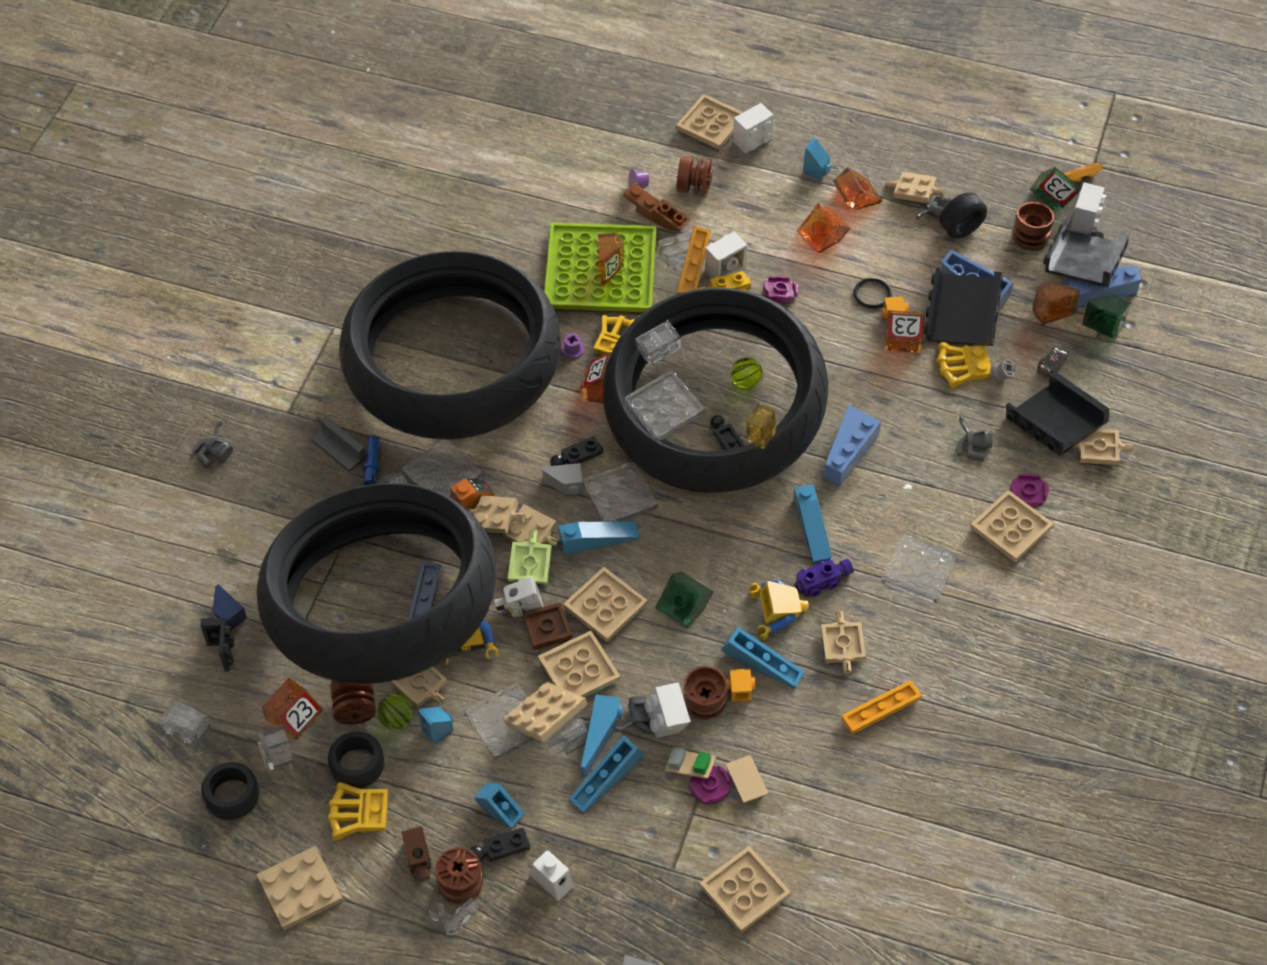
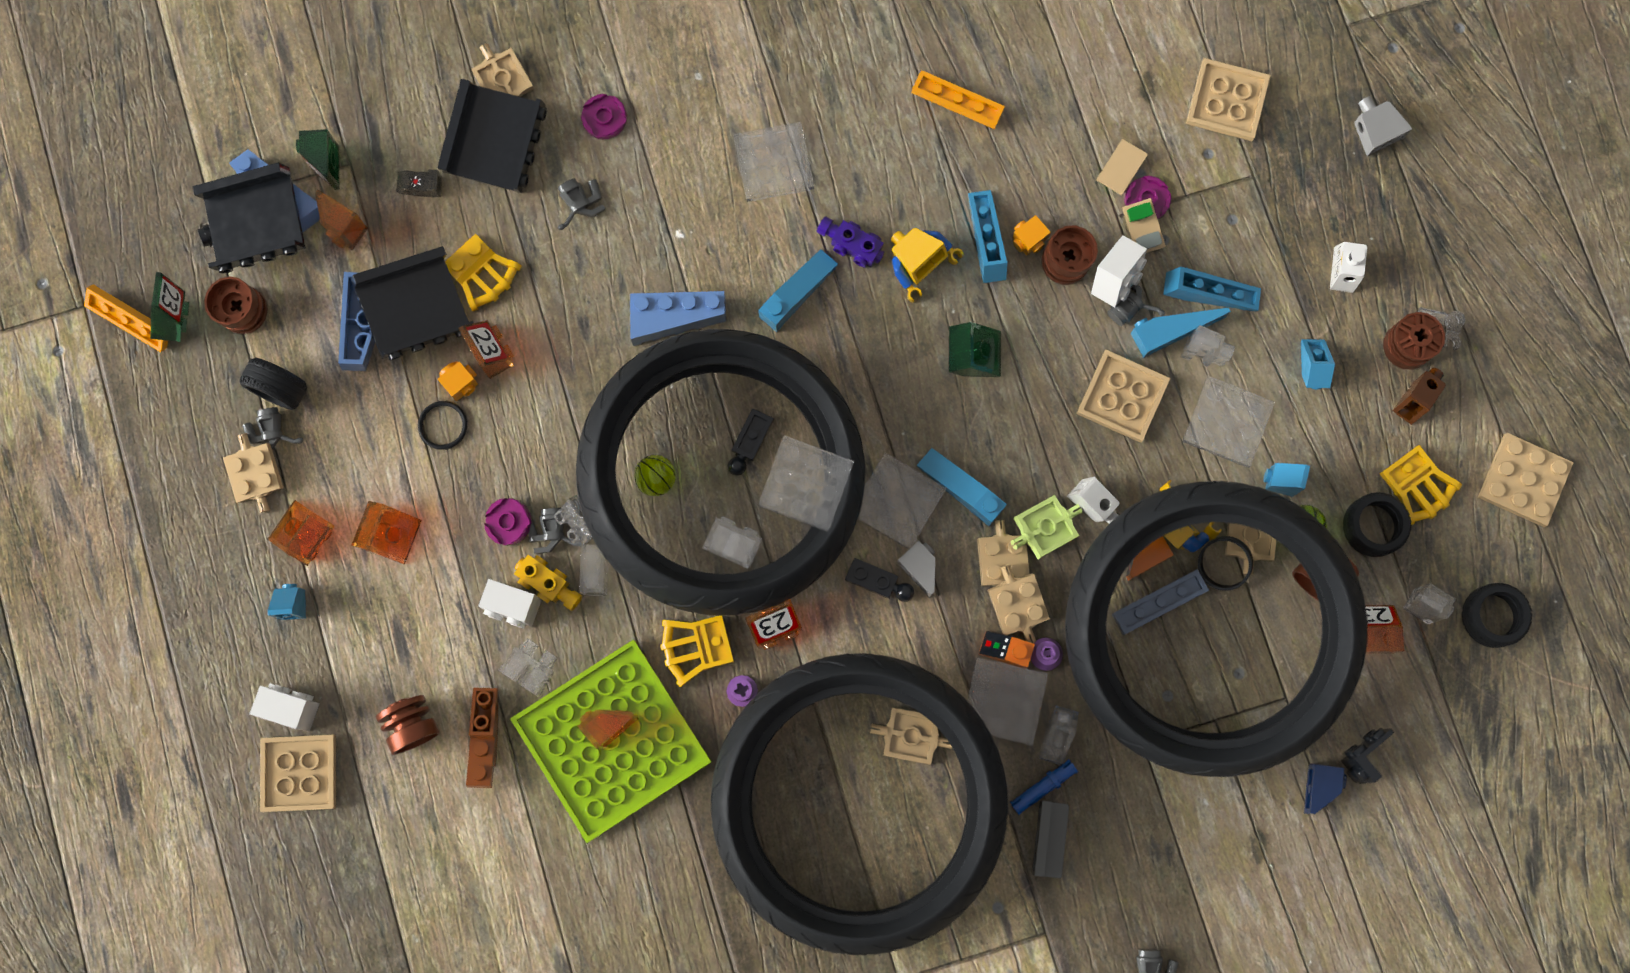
camera: 125 degrees left, 25 degrees up
(185, 722) = (1466, 719): clear brick -> none
(502, 845) = (1351, 334): black plate -> none
(545, 711) = (1208, 376): tan plate -> none
(547, 626) = (1101, 458): reddish brown plate -> none
(605, 604) = (1035, 422): tan plate -> none
(639, 178) = (452, 791): medium lavender piece -> none
(694, 259) = (540, 633): light orange plate -> none
(761, 425) = (774, 354): clear yellow brick -> none
(843, 642) = (913, 176): tan plate -> none
(1003, 370) = (467, 219): light grey wheel -> none
(1011, 526) = (663, 105): tan plate -> none
(1088, 209) = (174, 258): white brick -> none

